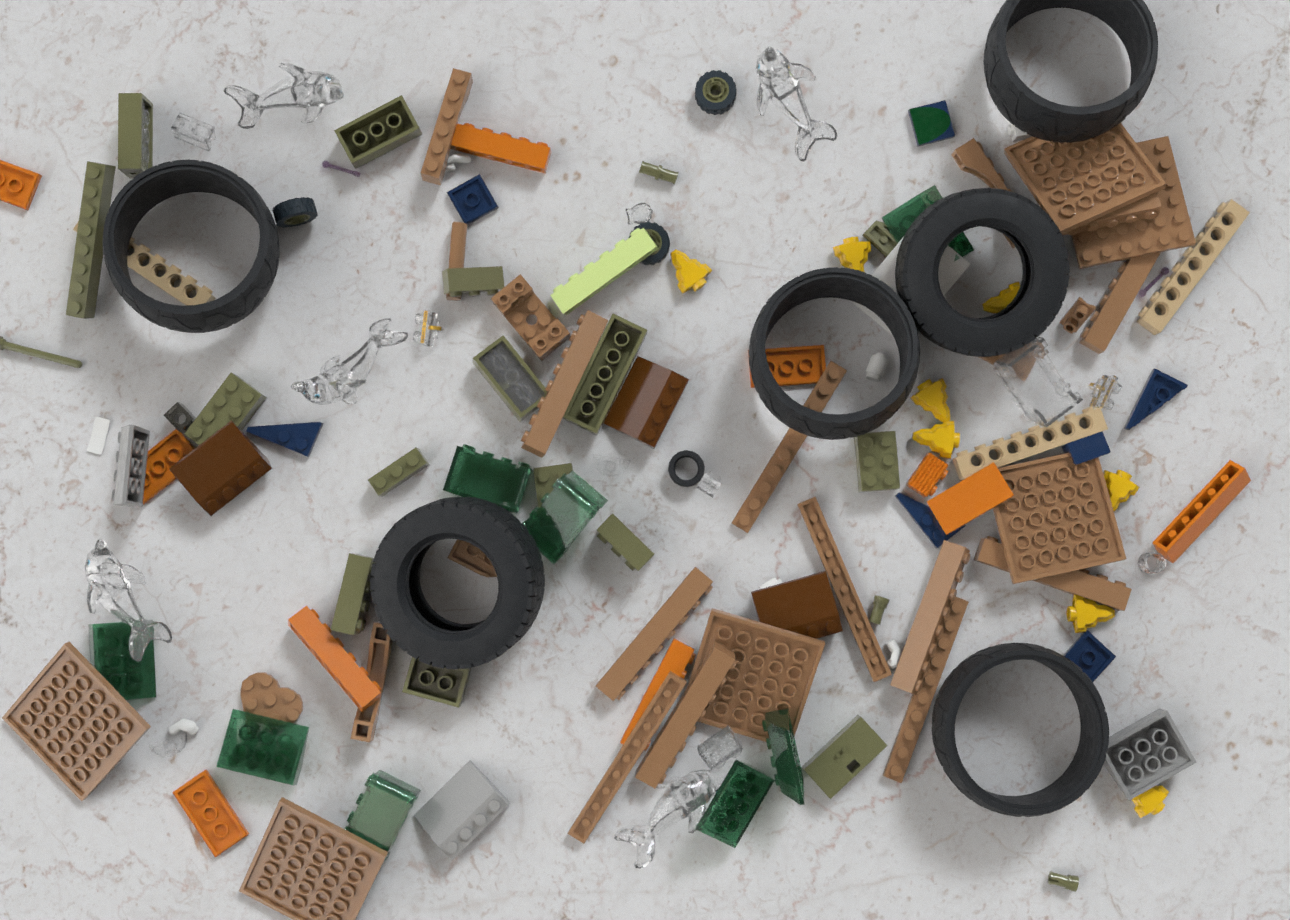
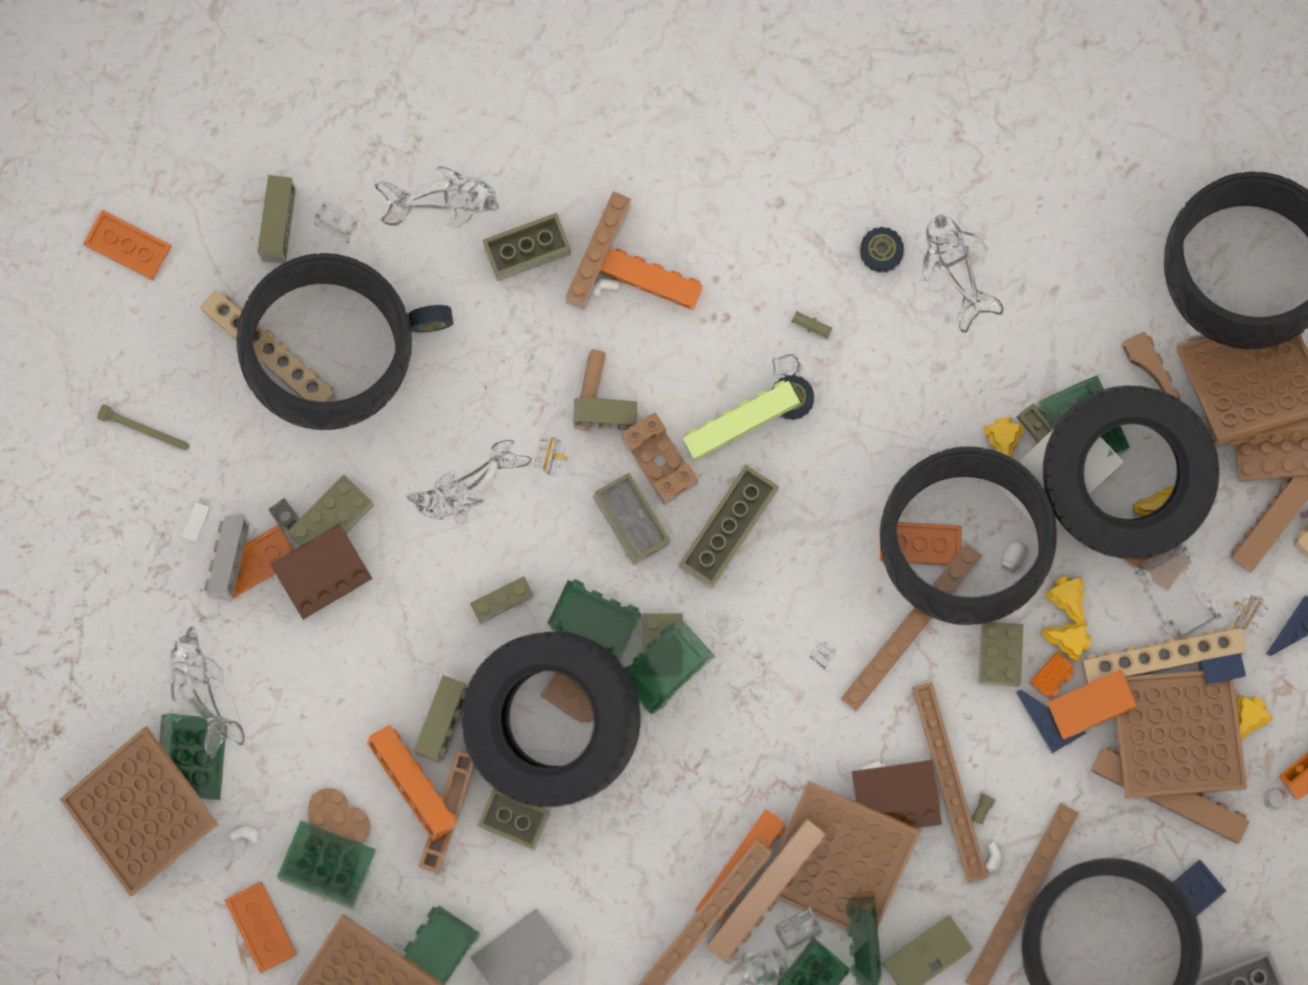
camera: 15 degrees right, 5 degrees down
(89, 240) = (218, 321): olive brick -> none
(296, 436) = (397, 549): dark blue wing -> none
(325, 164) = (467, 272): clear purple hinge -> none
(472, 199) = (614, 328): dark blue tile -> none
(564, 383) = (686, 530): medium nougat brick -> none
(624, 543) = (726, 703): olive brick -> none
(646, 401) = (768, 561): reddish brown slope -> none
(654, 633) = (745, 802): medium nougat brick -> none
(689, 272) = (830, 432): yellow rock -> none
(689, 454) = (804, 650): black tyre -> none
(930, 617) = (1036, 823): medium nougat brick -> none
(931, 123) = (1104, 310): dark green tile -> none
(1076, 315) = (1229, 530): medium nougat hips -> none
(1086, 613) = (1202, 842): yellow rock -> none

